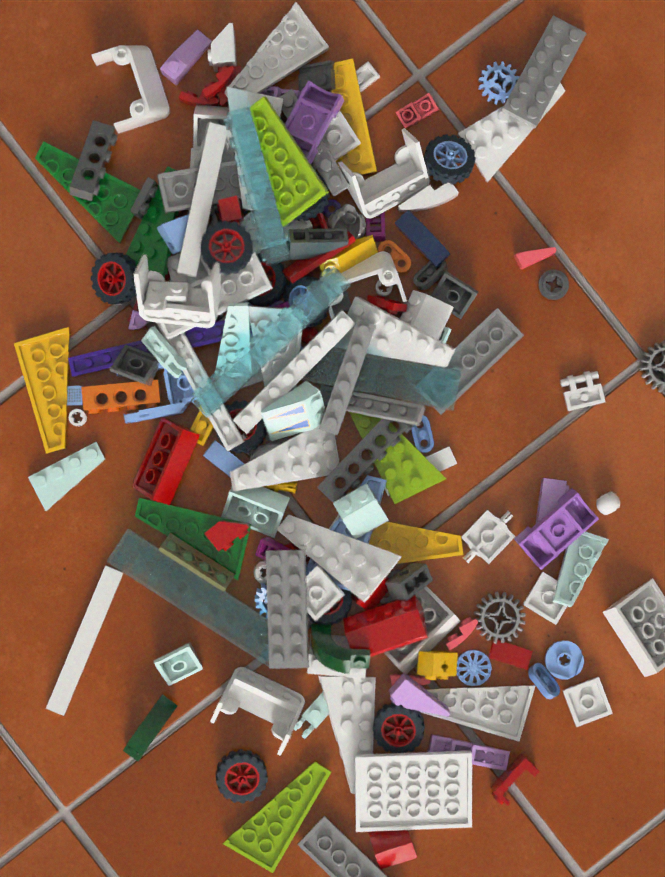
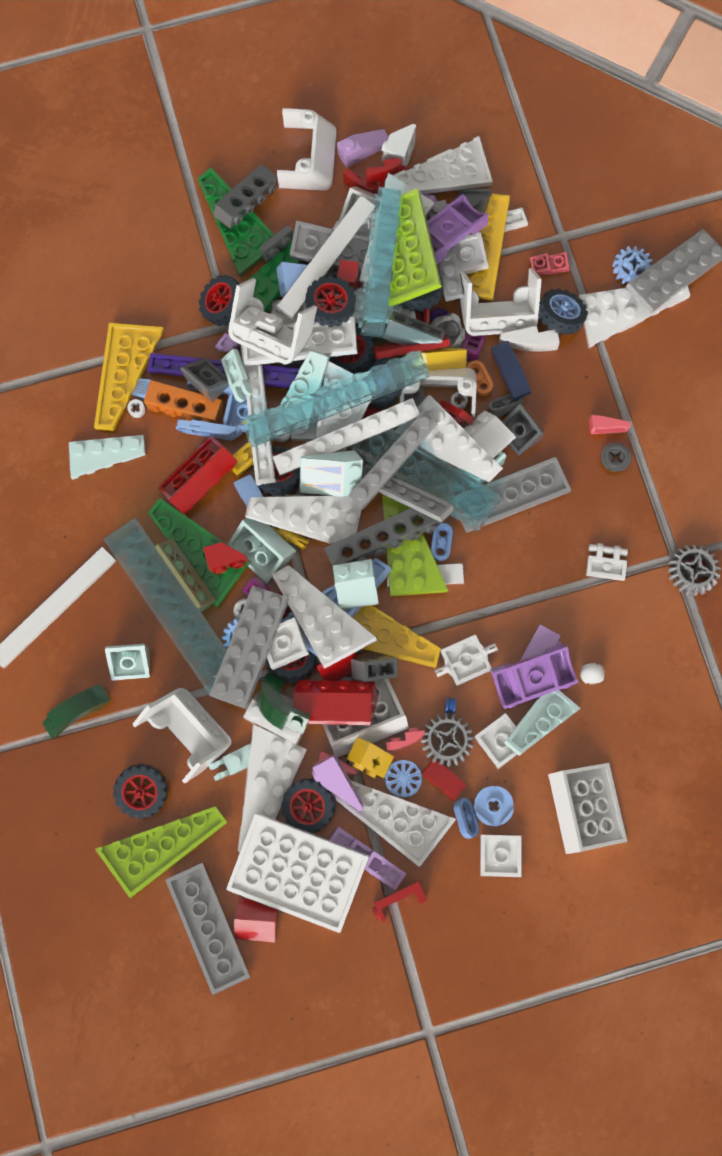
camera: 25 degrees right, 10 degrees down
(490, 584) = (450, 705): none -> blue bush

